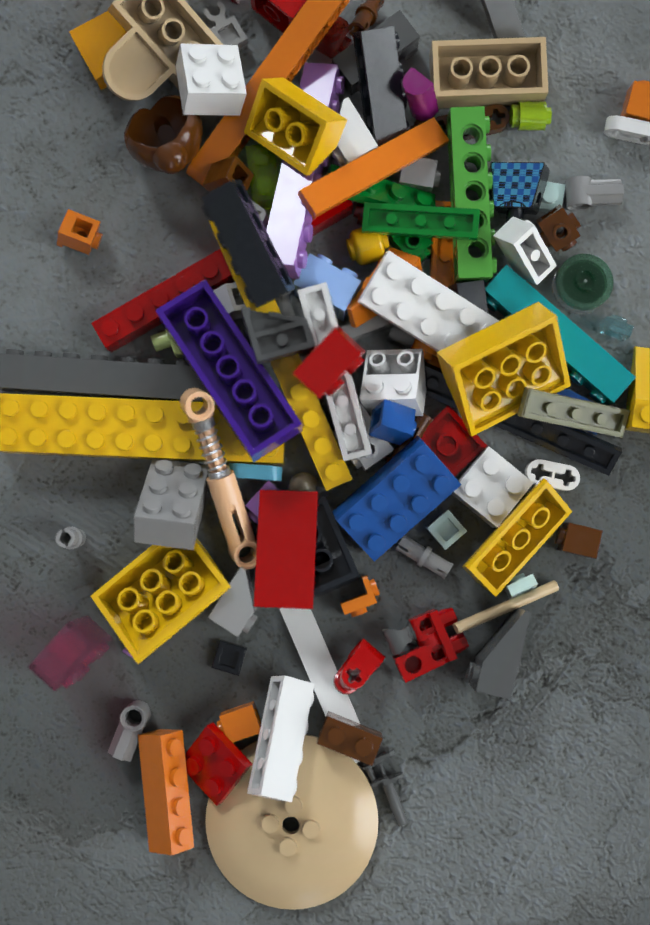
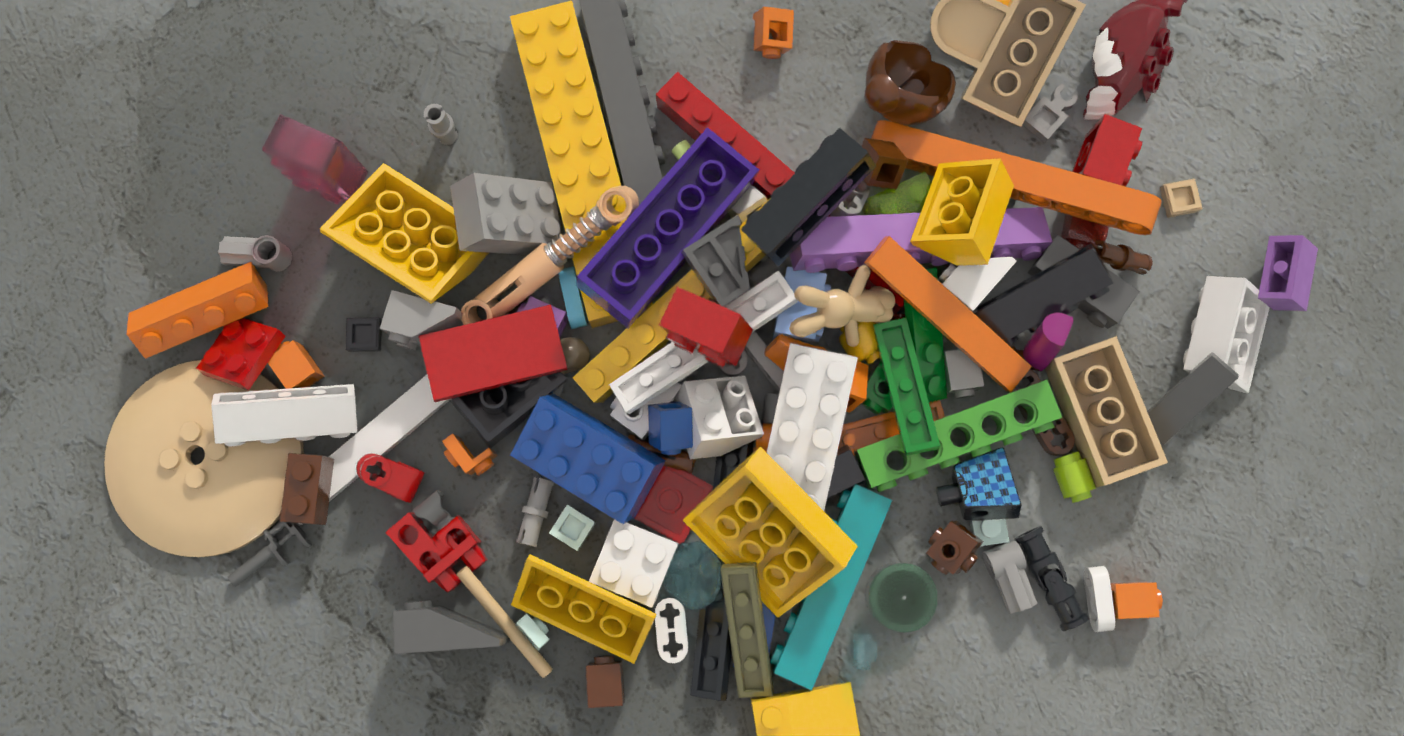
camera: 75 degrees right, 5 degrees down
(210, 79) = (981, 107): white brick -> none
(343, 250) = (844, 308): none -> tan animal
(517, 441) = (694, 575): none -> clear light blue dish
(525, 250) = (915, 516): white brick -> none
(605, 161) = (1056, 589): none -> black piece

